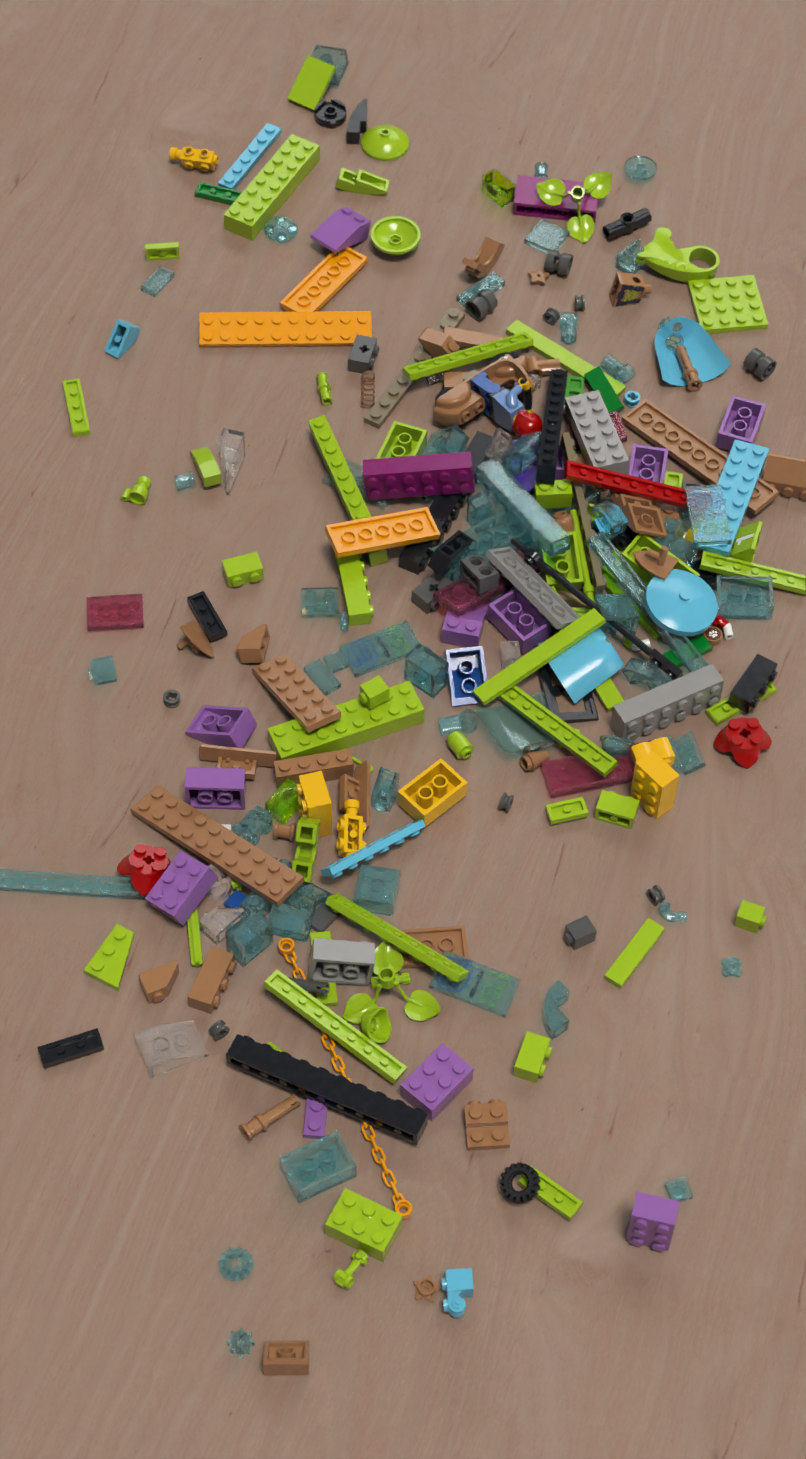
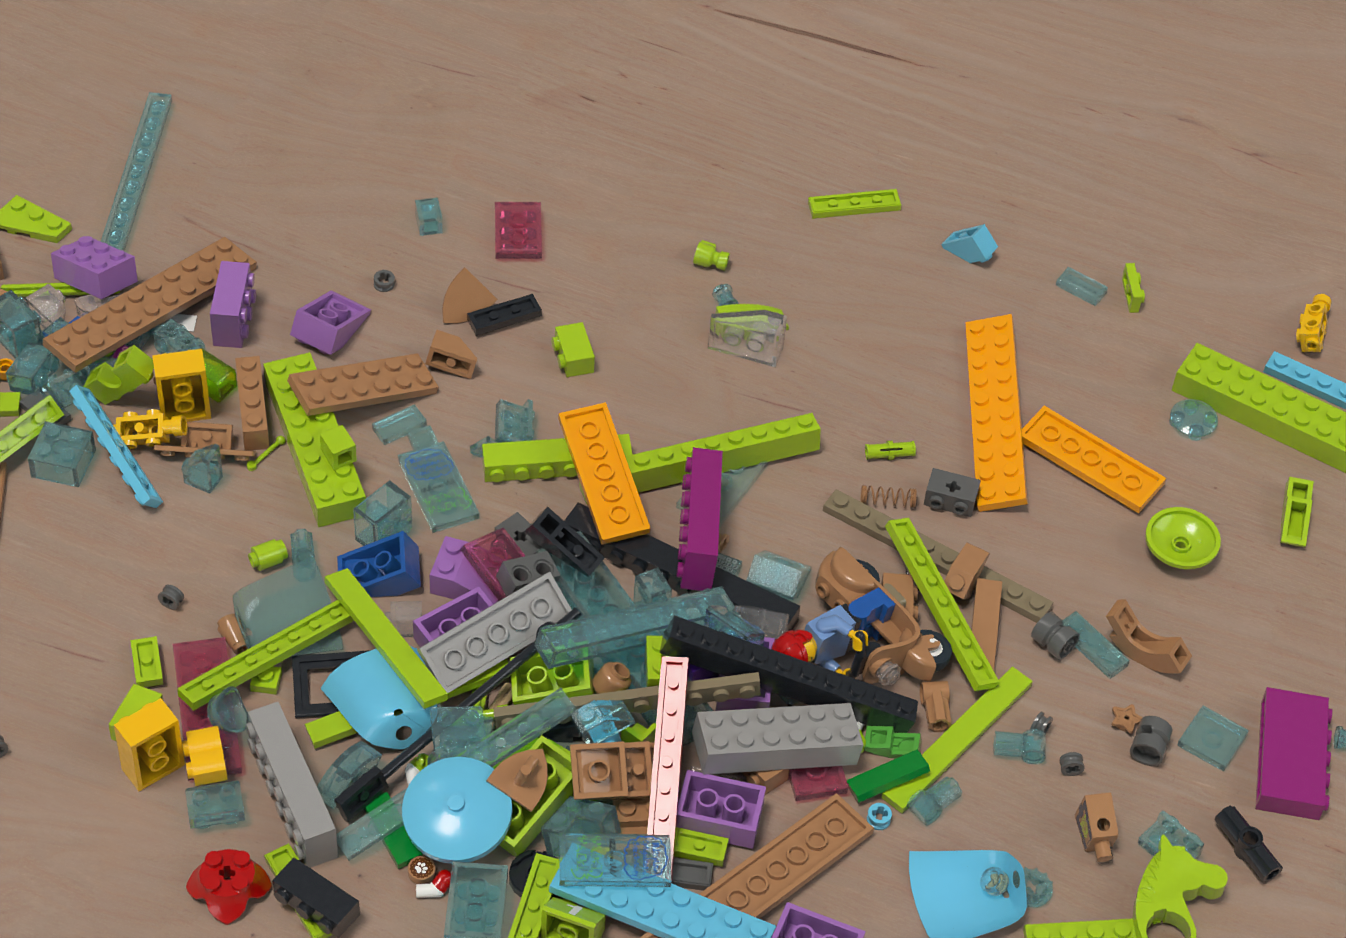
camera: 90 degrees right, 5 degrees down
(144, 866) = (149, 245): red brick -> none
(216, 193) = (1257, 348): green tile -> none
(238, 758) = (272, 330): medium nougat bracket -> none
(342, 230) = (1183, 474): medium lavender slope -> none
(403, 441) = (766, 519): lime brick -> none
(432, 792) = (192, 515): yellow brick -> none
(502, 184) = (1311, 661): clear neon green piece -> none
(596, 184) = (1290, 730): lime plant -> none
(690, 374) = (929, 896): medium nougat pin -> none

